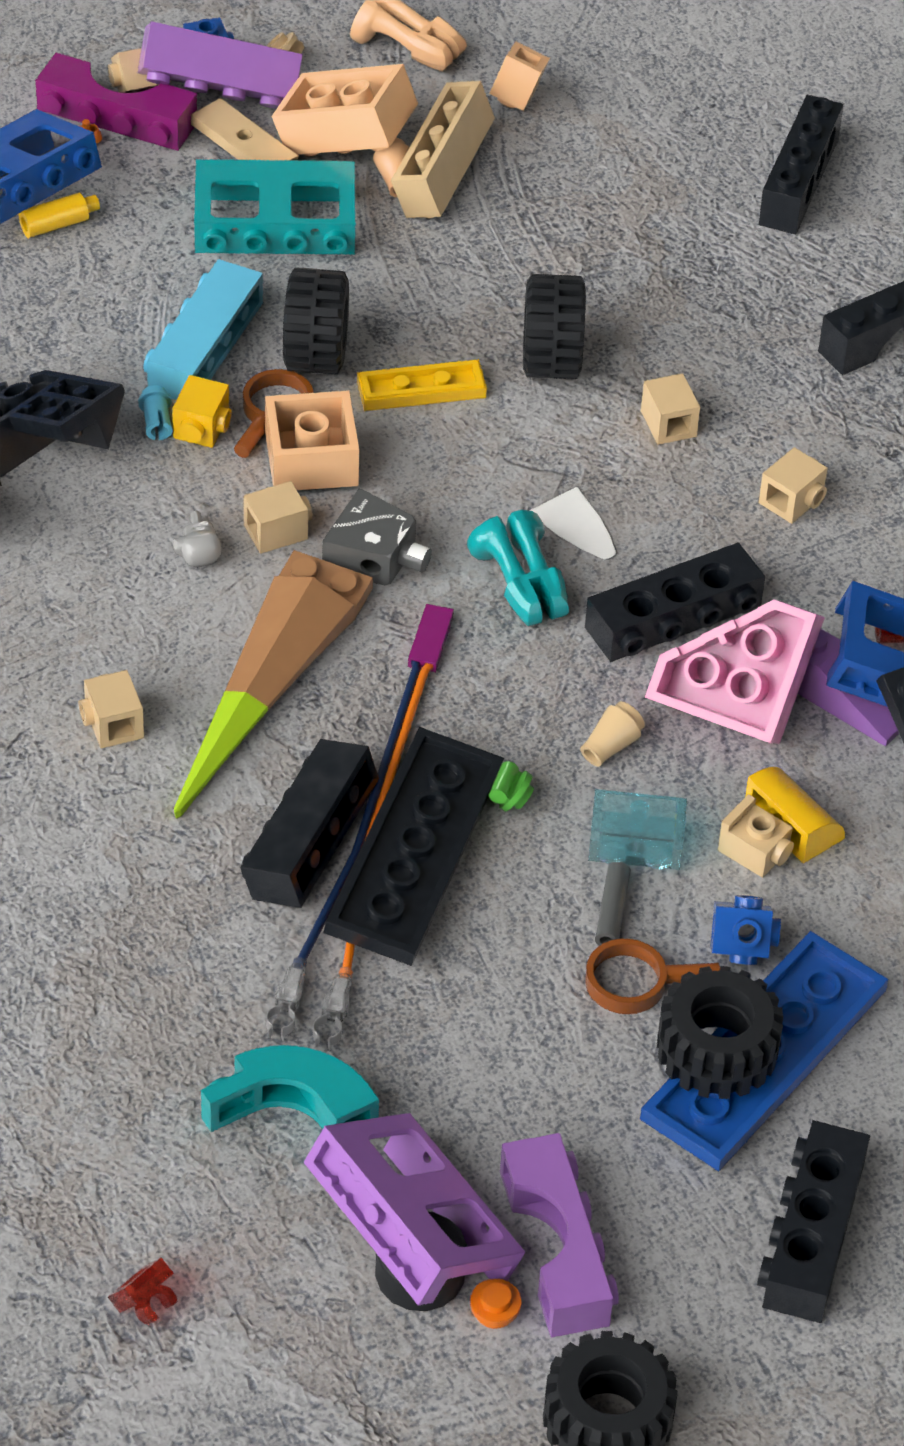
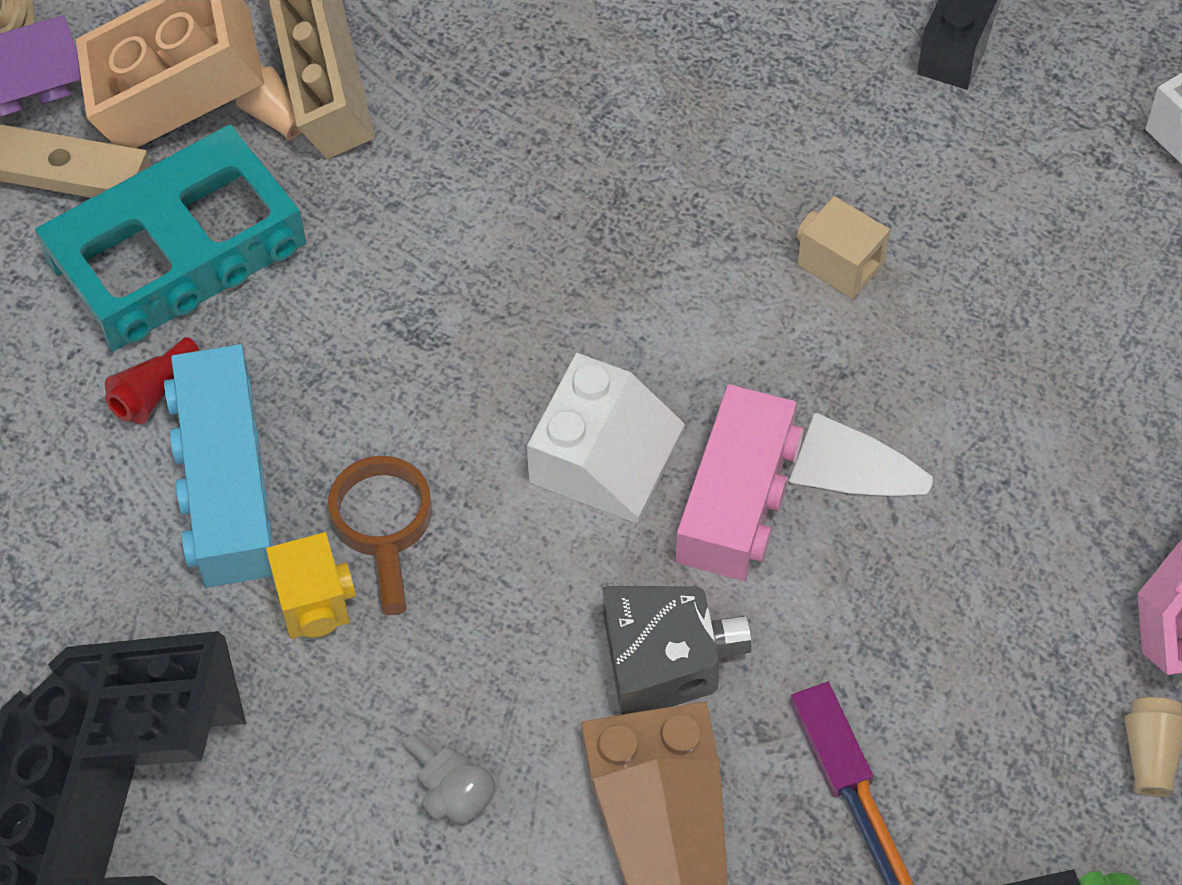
camera: 30 degrees left, 10 degrees up
(155, 404) = (249, 619): medium azure pin -> none
(186, 272) = (139, 389): none -> red cone
(276, 517) = (520, 684): tan brick -> none
(312, 440) = (485, 549): light nougat brick -> none
(315, 321) = (367, 377): black tyre -> none
(421, 385) = (527, 382): yellow tile -> none
(431, 428) = (603, 439): none -> white slope
(490, 487) = (738, 483): none -> bright pink brick
(523, 589) = (903, 607): teal piece -> none
(554, 326) = (649, 219): black tyre -> none
(674, 602) = (1097, 433): black brick -> none
(793, 485) = (1059, 268): tan brick -> none

